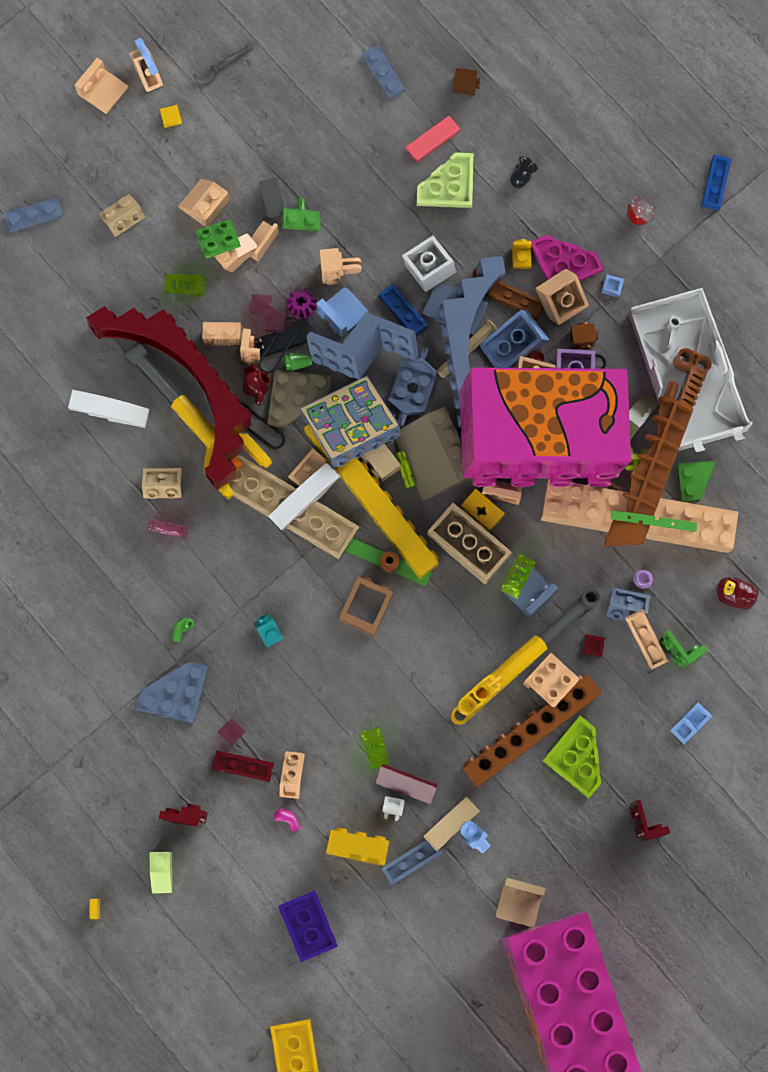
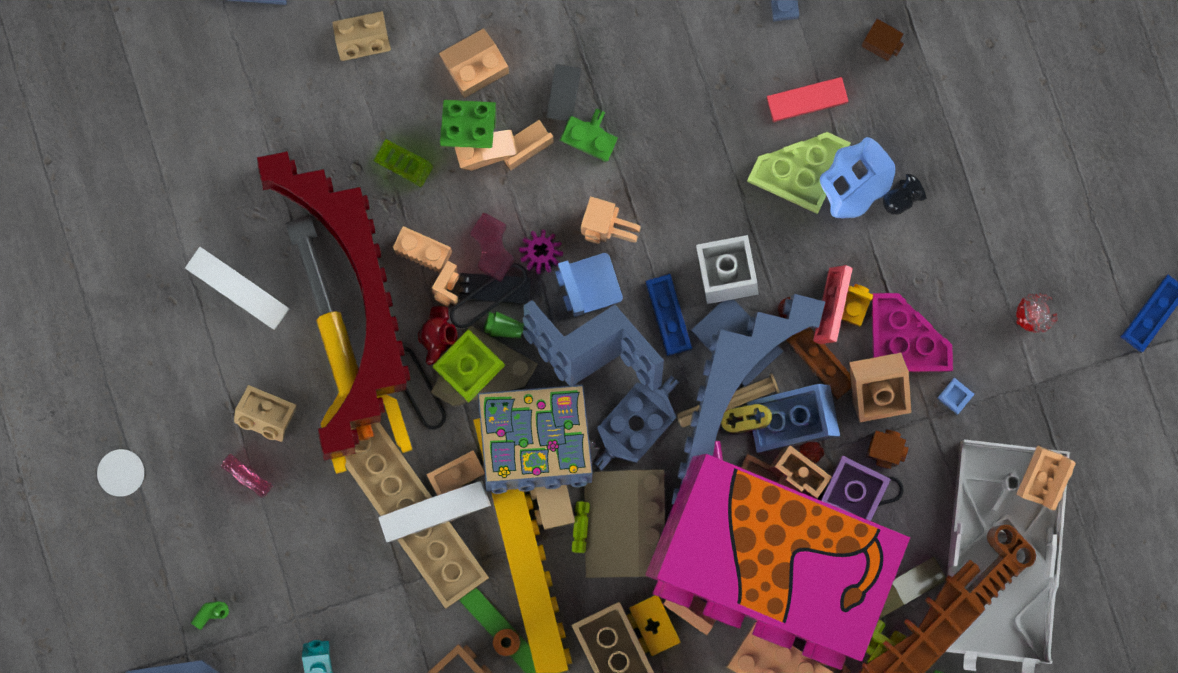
camera: 25 degrees right, 5 degrees up
(80, 563) = (120, 472): none -> white sticker
(285, 393) = (468, 365): none -> lime tile
(481, 350) = (745, 412): none -> light yellow beam
(498, 177) = (861, 191): none -> light blue piece
(506, 249) = (834, 298): none -> coral tile
(695, 308) = (1046, 477): none -> light nougat bracket

